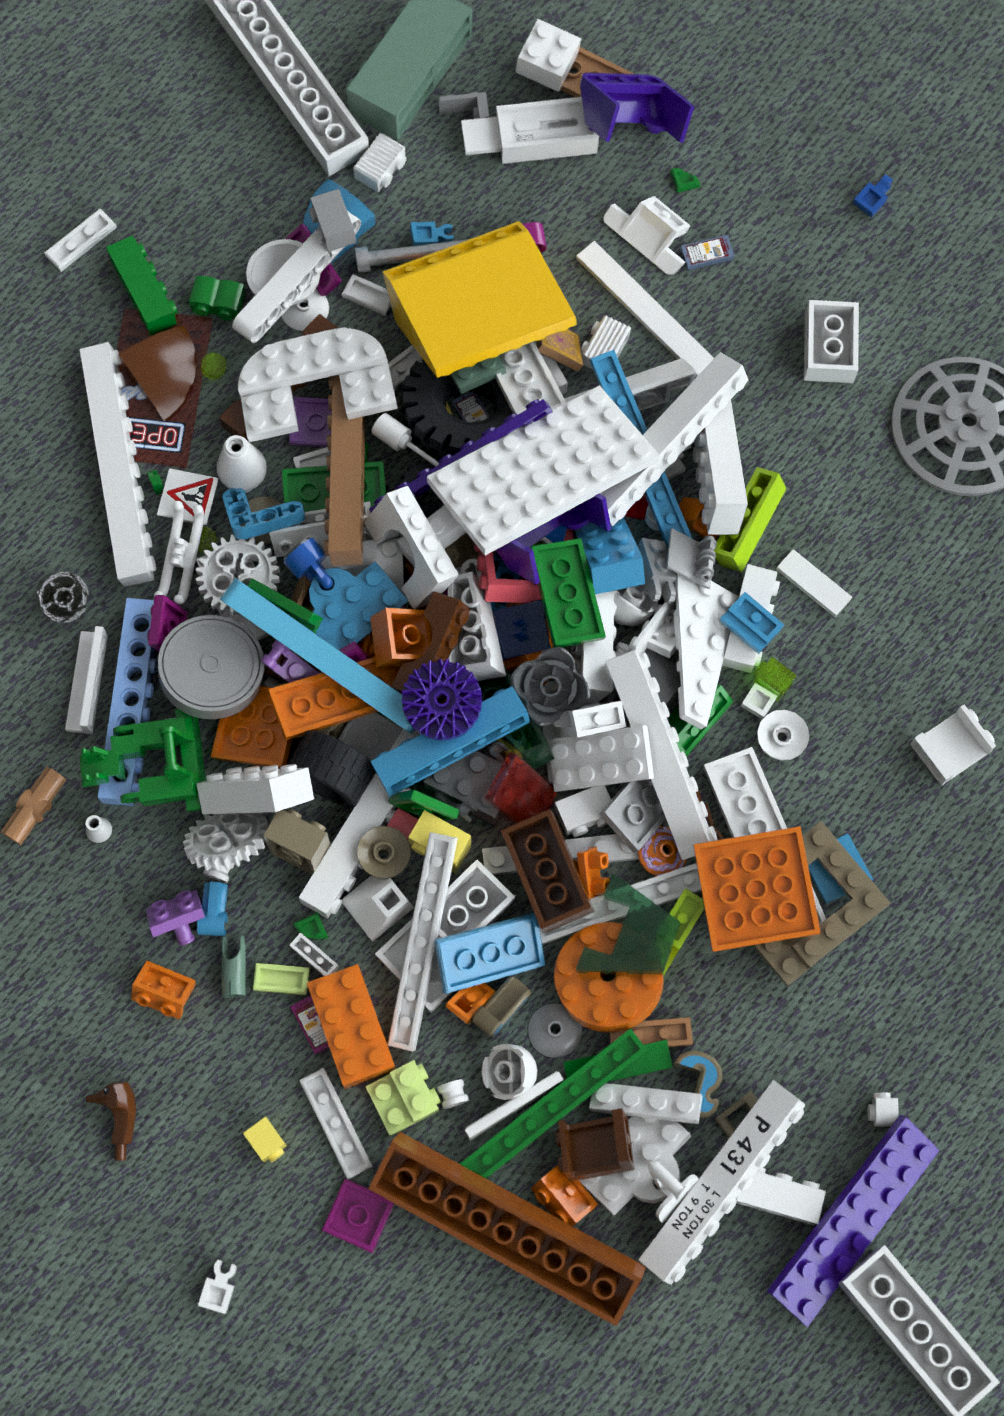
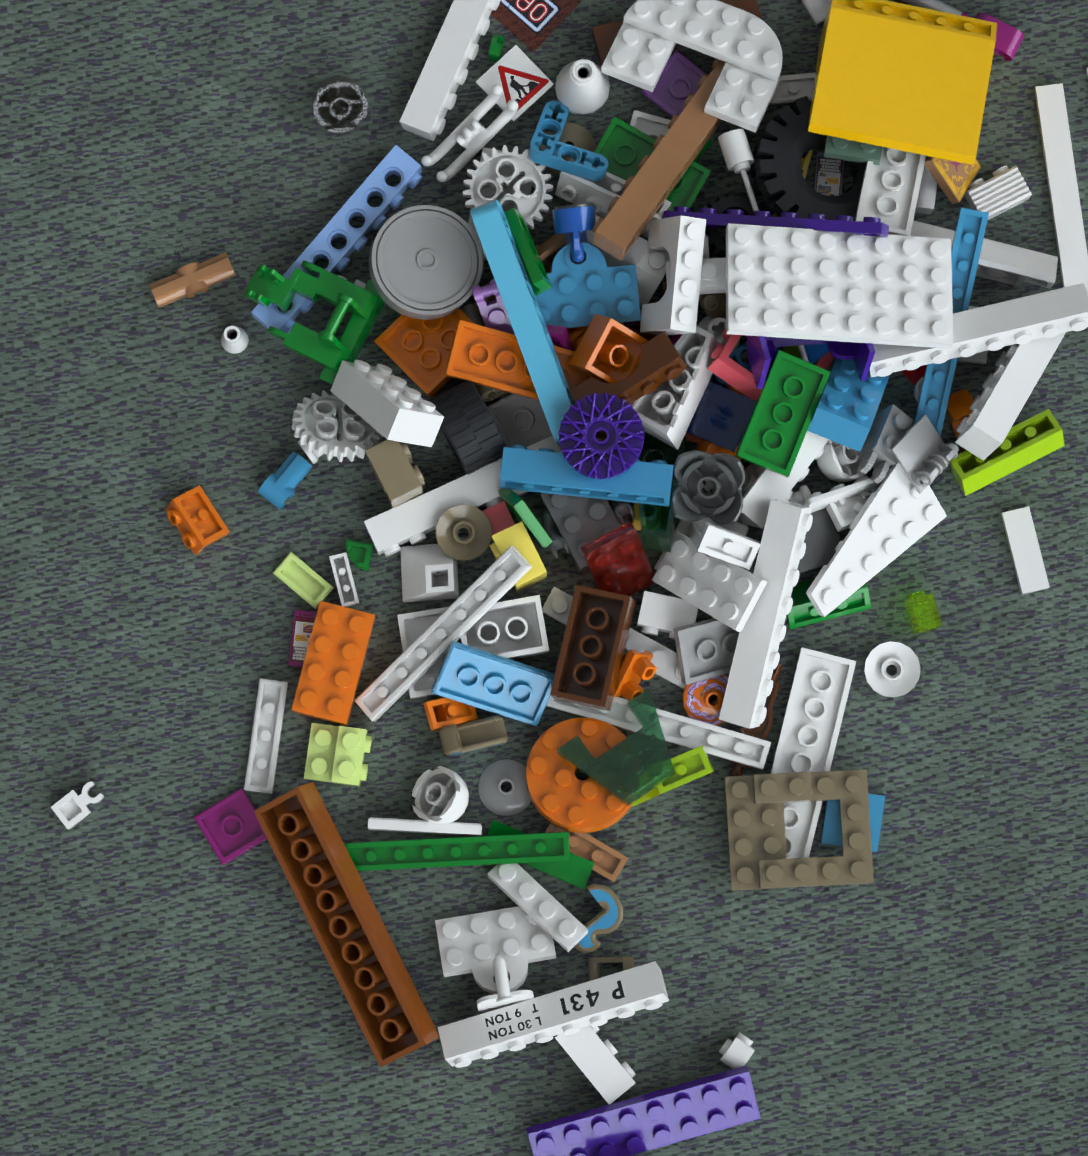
camera: 35 degrees right, 10 degrees up
(86, 681) = (311, 196): white fence -> none
(121, 1101) = (98, 590): reddish brown animal -> none
(164, 619) = (415, 190): magenta plate -> none
(176, 915) = (249, 463): medium lavender plate -> none
(207, 537) = (506, 135): clear neon green tile -> none
(233, 972) = (267, 545): sand green piece -> none
(265, 1140) = (197, 710): light yellow brick -> none
(452, 1094) = (380, 781): white wheel -> none
(563, 1198) = (415, 931): orange bracket -> none
(595, 1147) = (468, 910): reddish brown panel -> none
(751, 622) = (935, 550): dark azure plate -> none
(756, 889) = (761, 790): orange plate -> none
(759, 701) = (893, 624): white plate -> none
(760, 585) = (940, 543): white brick -> none
(953, 745) = (1039, 783): white panel -> none

